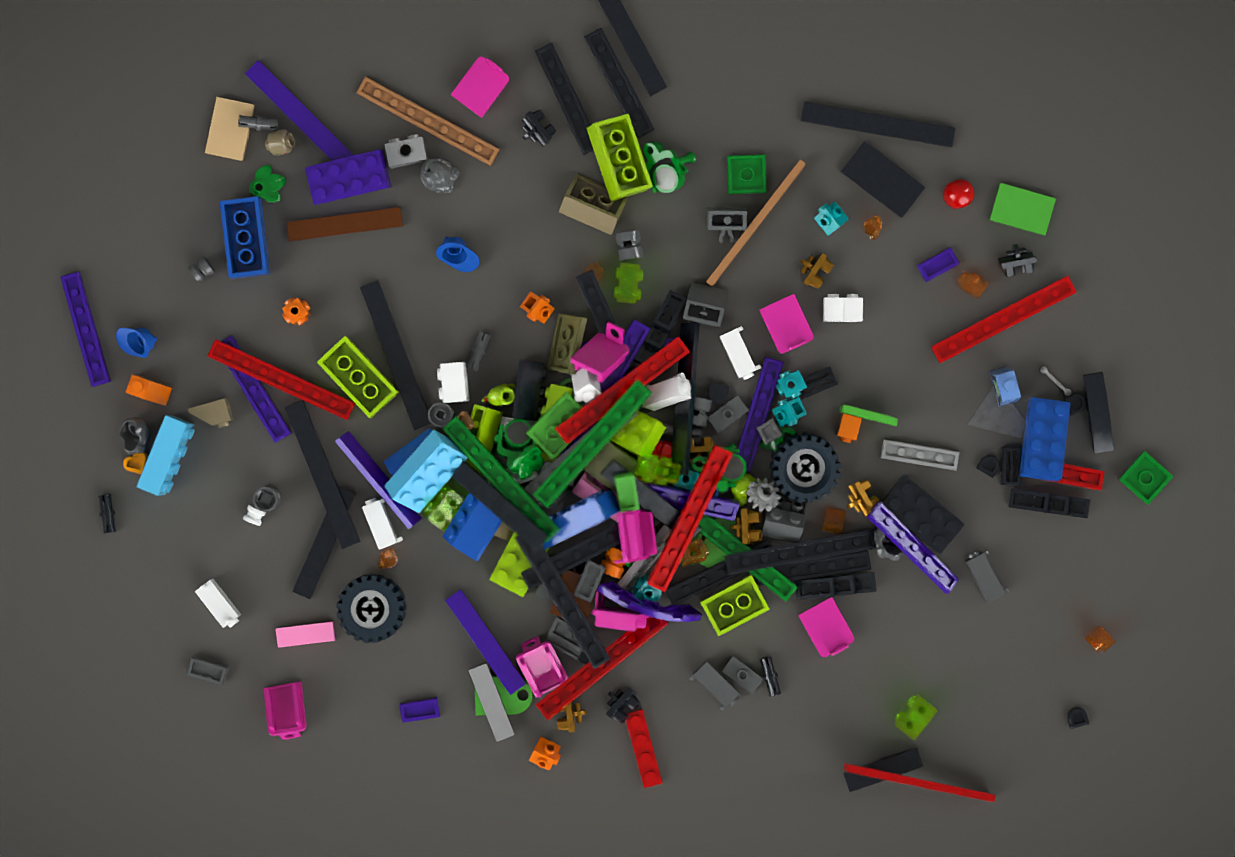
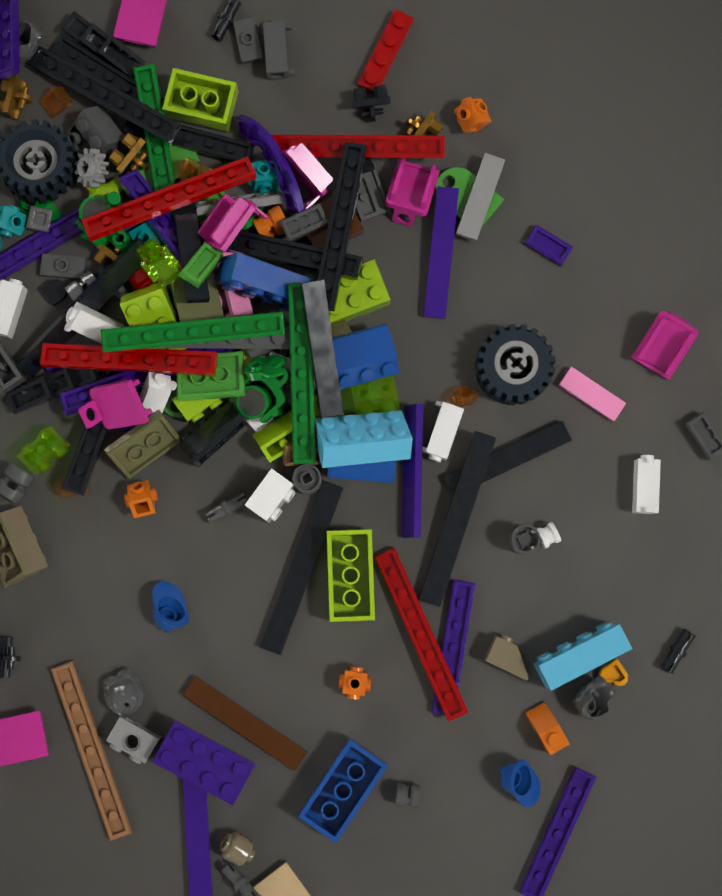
camera: 145 degrees left, 5 degrees down
(270, 184) = (280, 818): green plate -> none
(500, 395) = (239, 449): lime animal -> none

